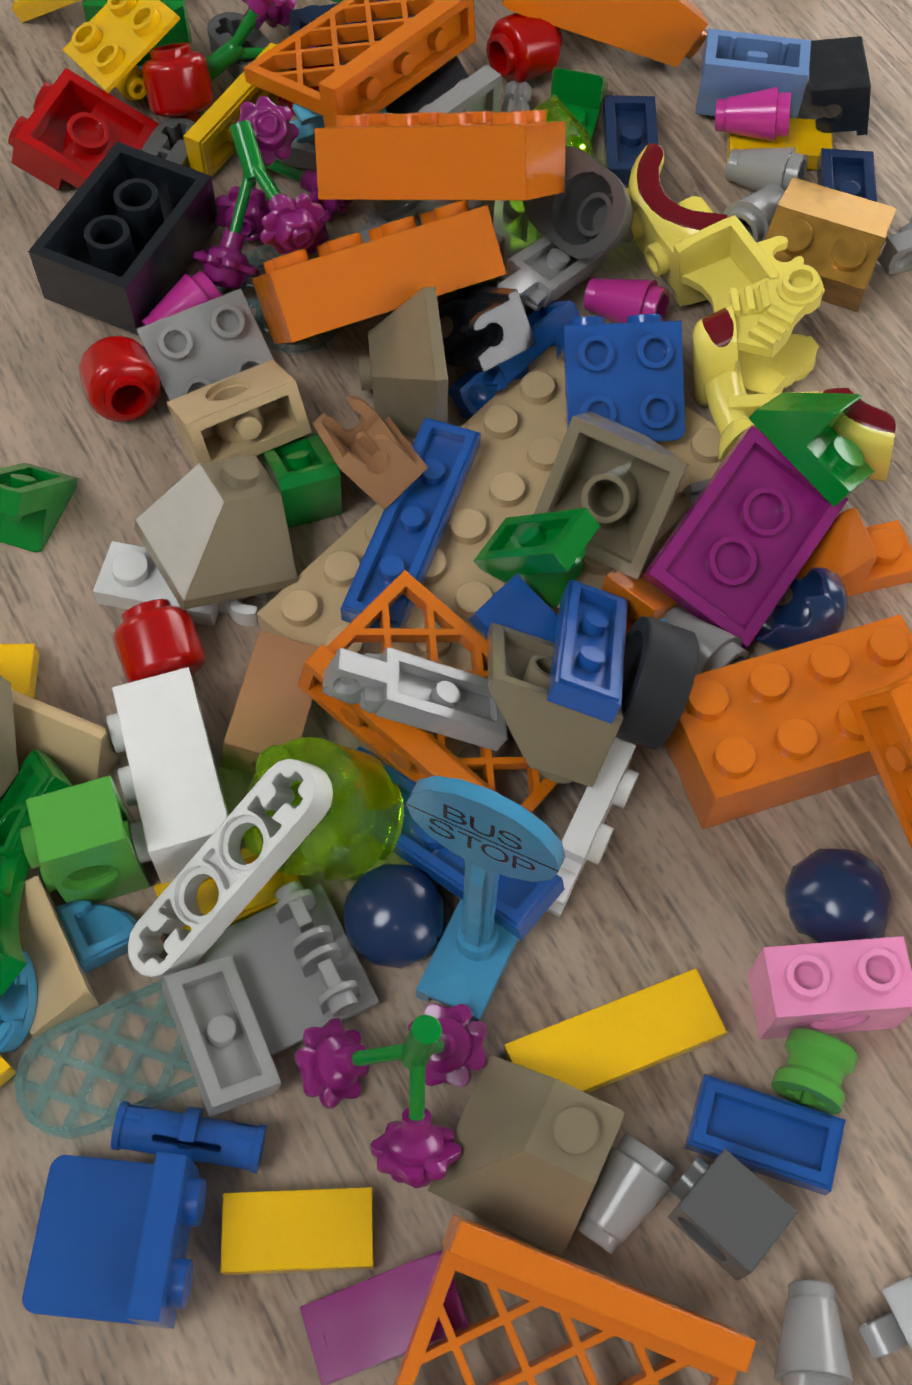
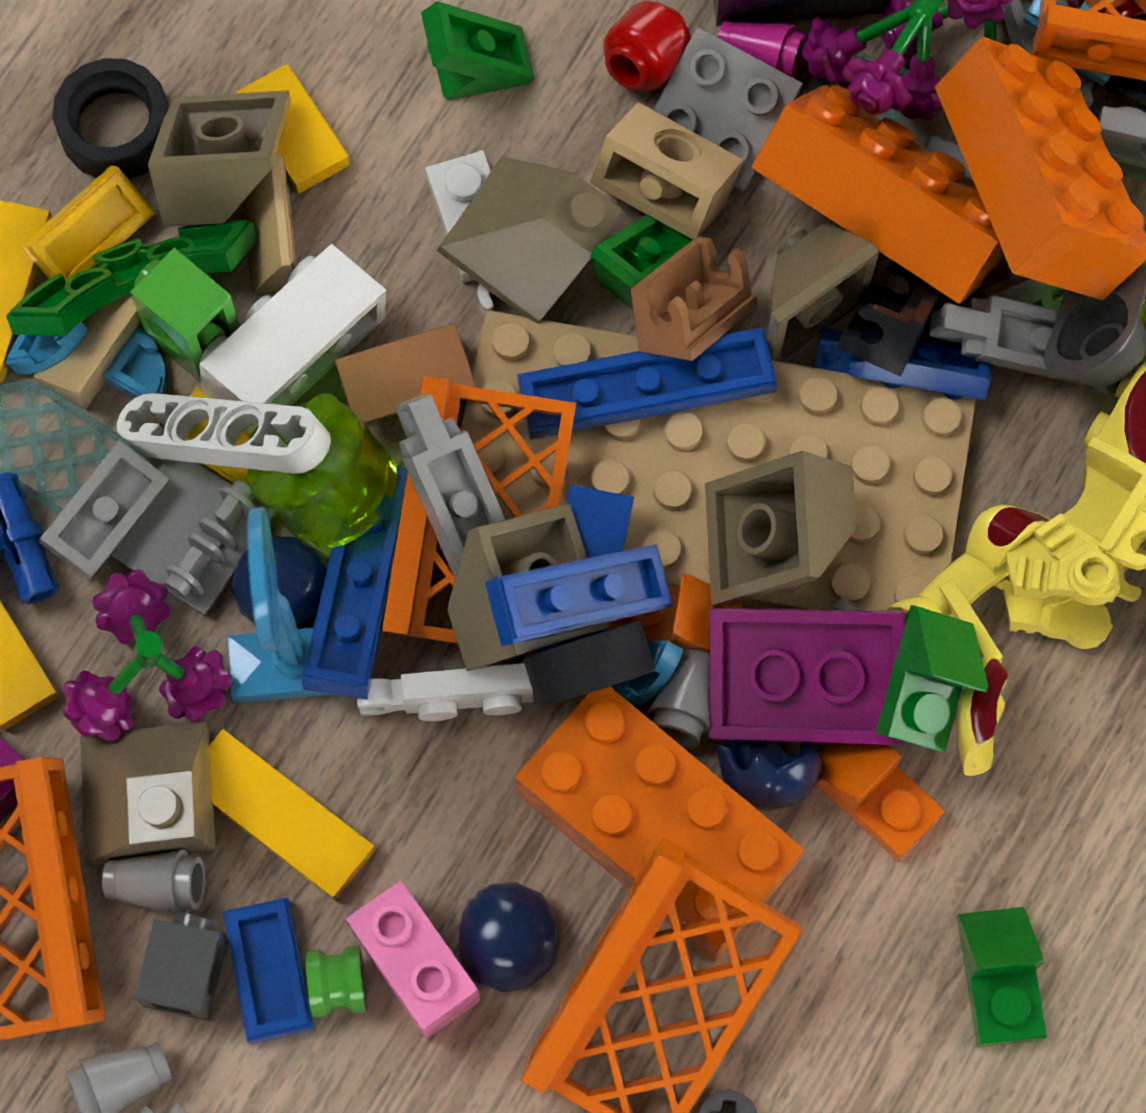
camera: 60 degrees right, 10 degrees up
(157, 640) = (402, 253): red head -> none
(540, 549) = (673, 504): green slope -> none
(625, 297) = (1045, 436): dark pink cone -> none
(626, 372) = (922, 472): blue bracket -> none

